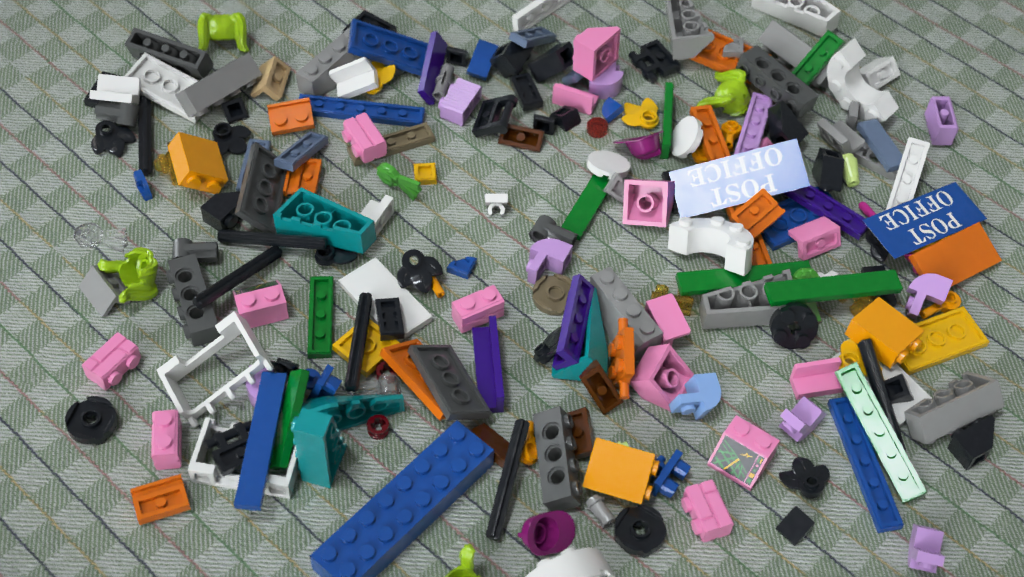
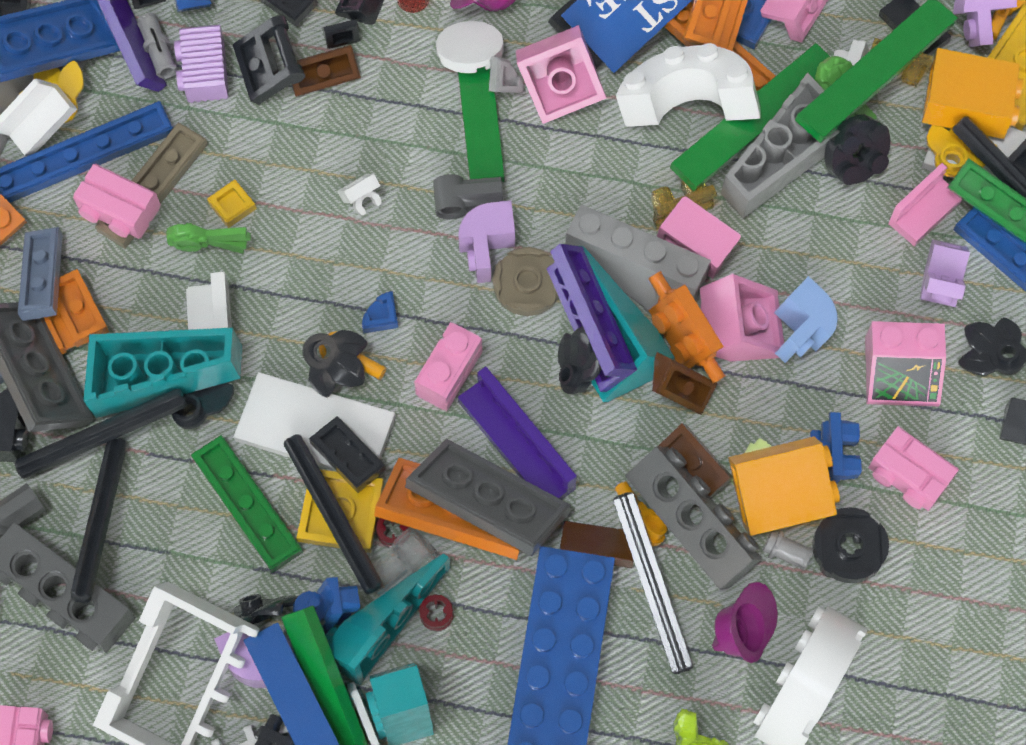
camera: 30 degrees left, 15 degrees up
(261, 303) = (153, 535): bright pink slope -> none

